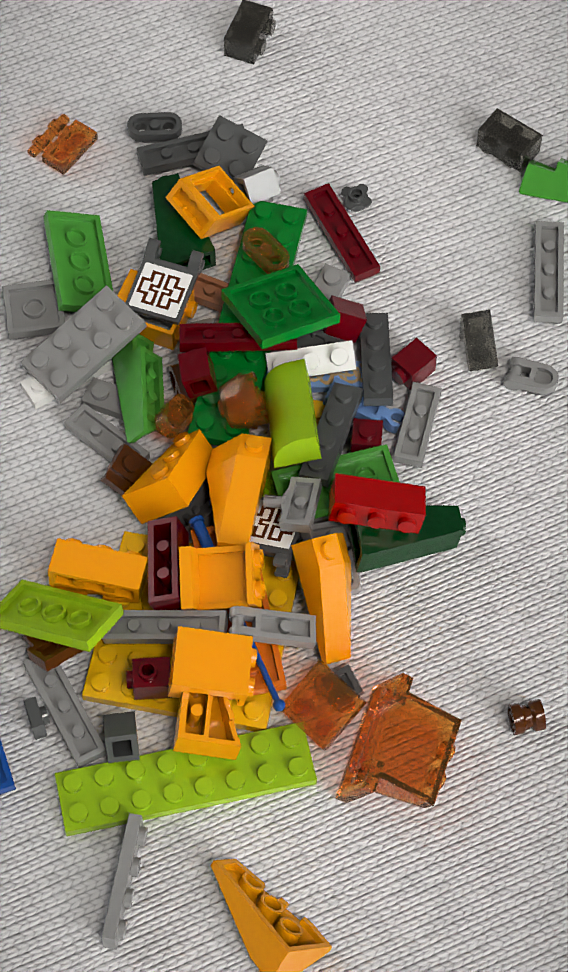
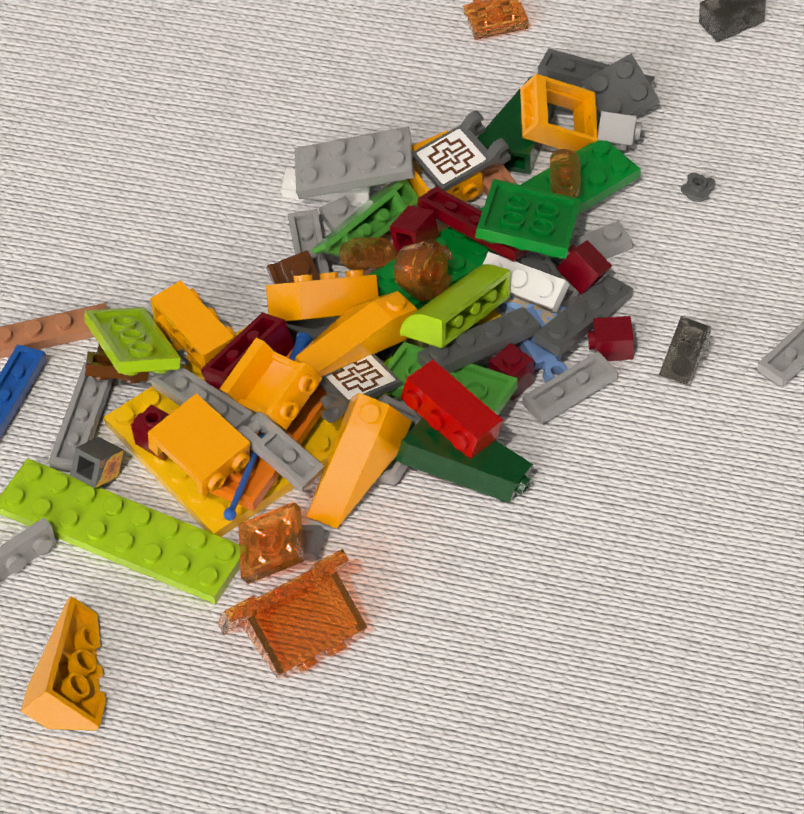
camera: 45 degrees right, 10 degrees down
(32, 309) = (349, 117): light grey plate -> none
(37, 717) = (52, 409): dark grey plate -> none
(76, 257) = (418, 99): bright green plate -> none
(154, 126) = (581, 42): dark grey plate -> none
(206, 726) = (157, 490): light orange wedge -> none
(297, 504) = (386, 370): light grey plate -> none
(342, 233) = (656, 206): dark red plate -> none
(524, 717) = (428, 666): reddish brown wheel -> none
(542, 377) = (714, 417): light grey plate -> none

